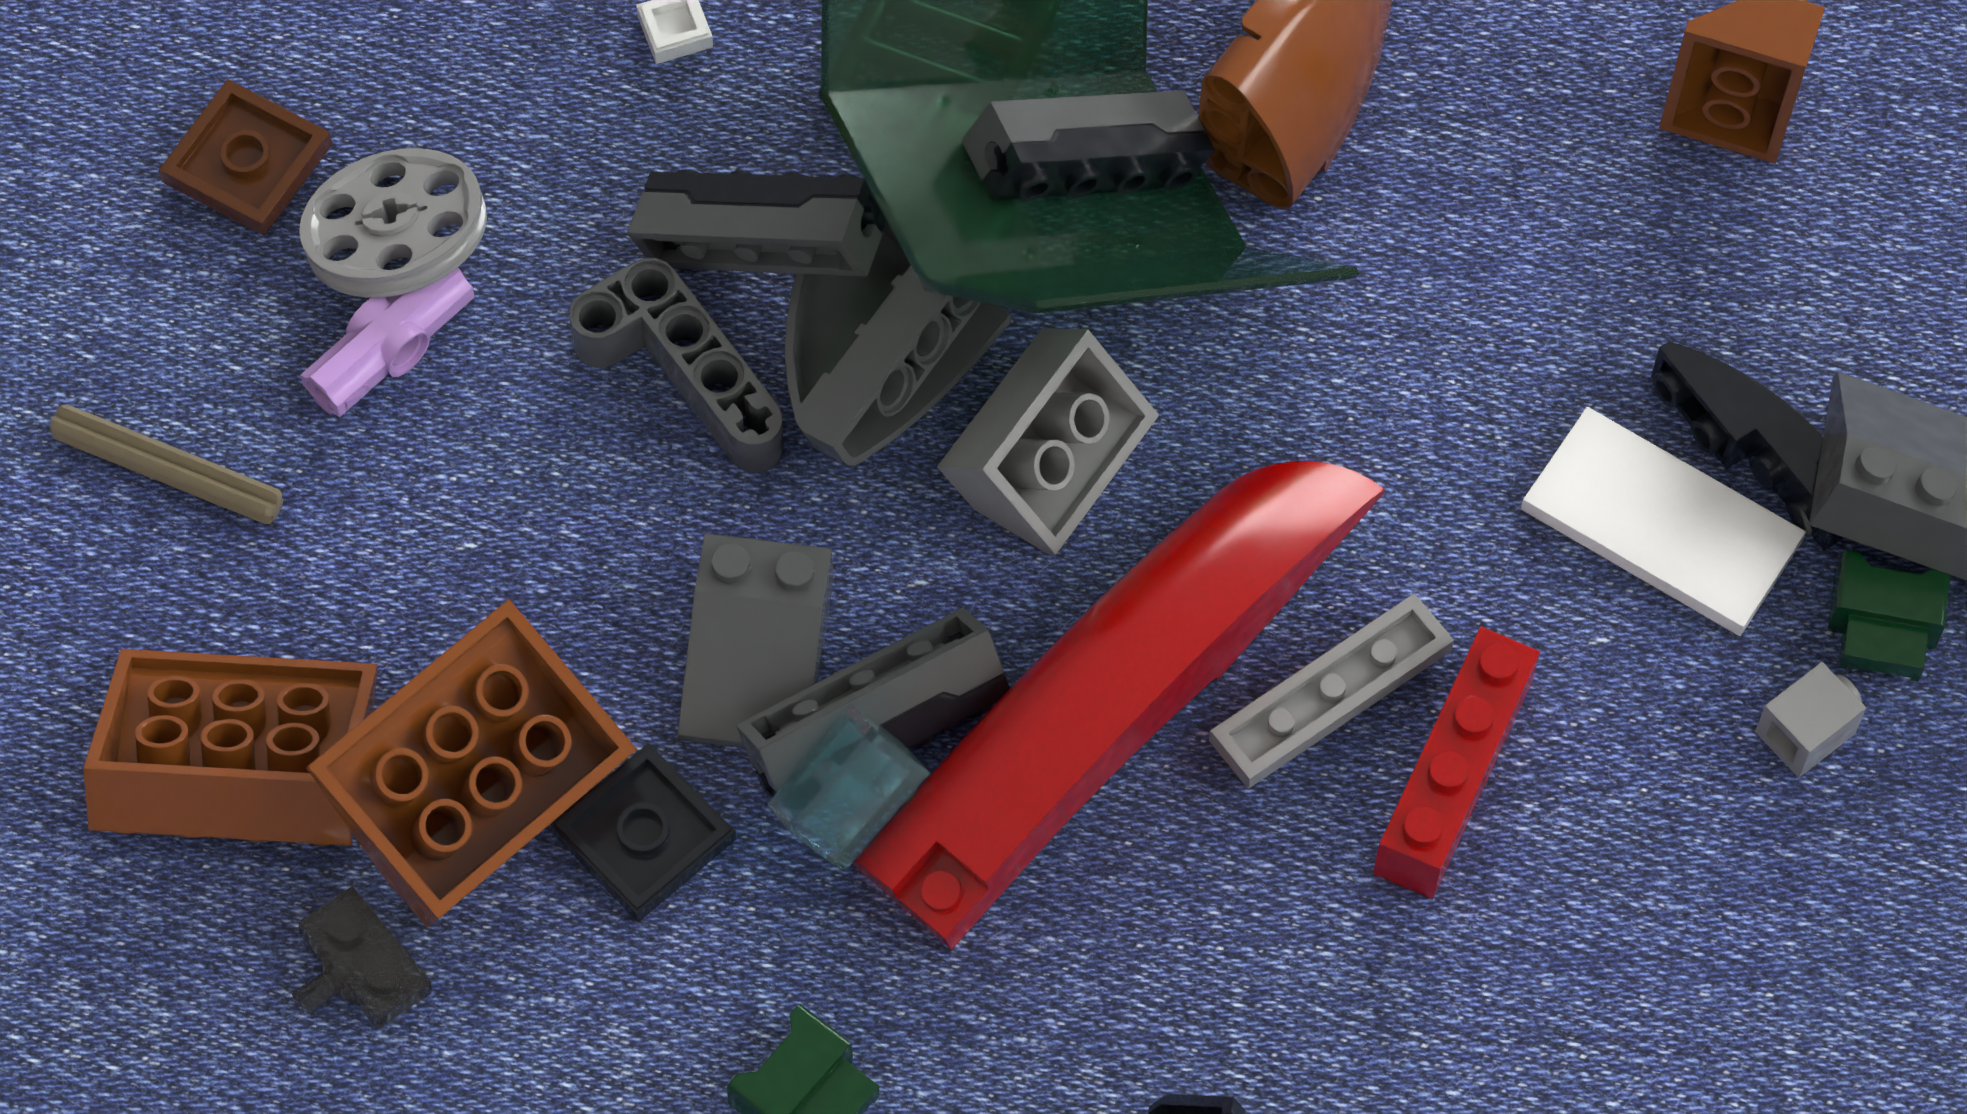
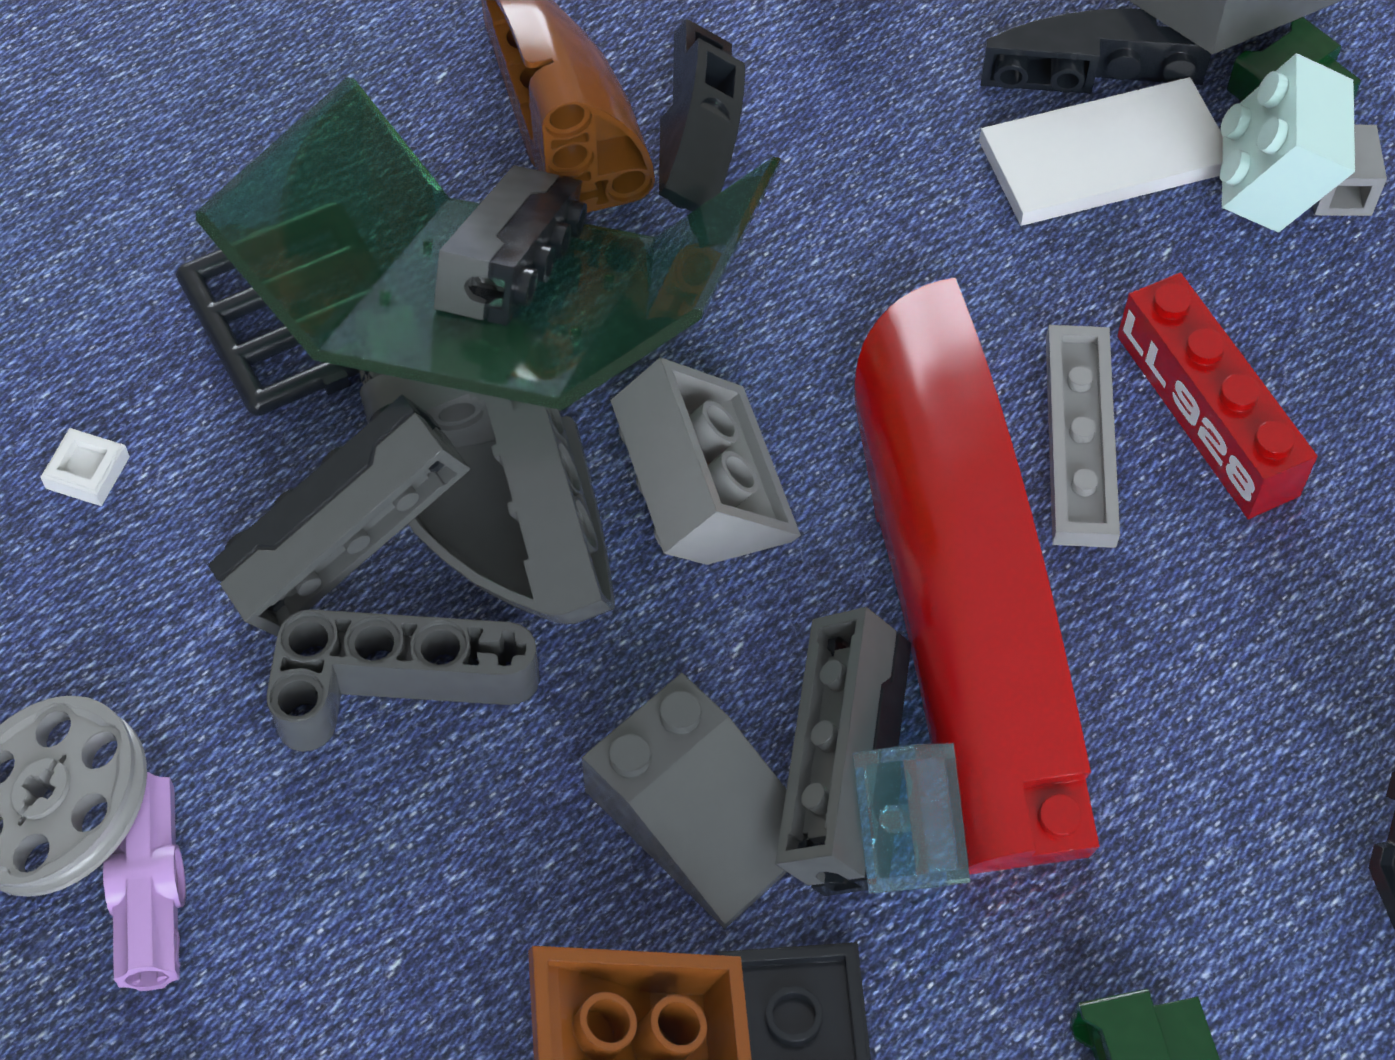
camera: 50 degrees left, 5 degrees down
(1386, 186) = (704, 117): none -> black slope
(1766, 645) = (1288, 143): none -> light aqua brick

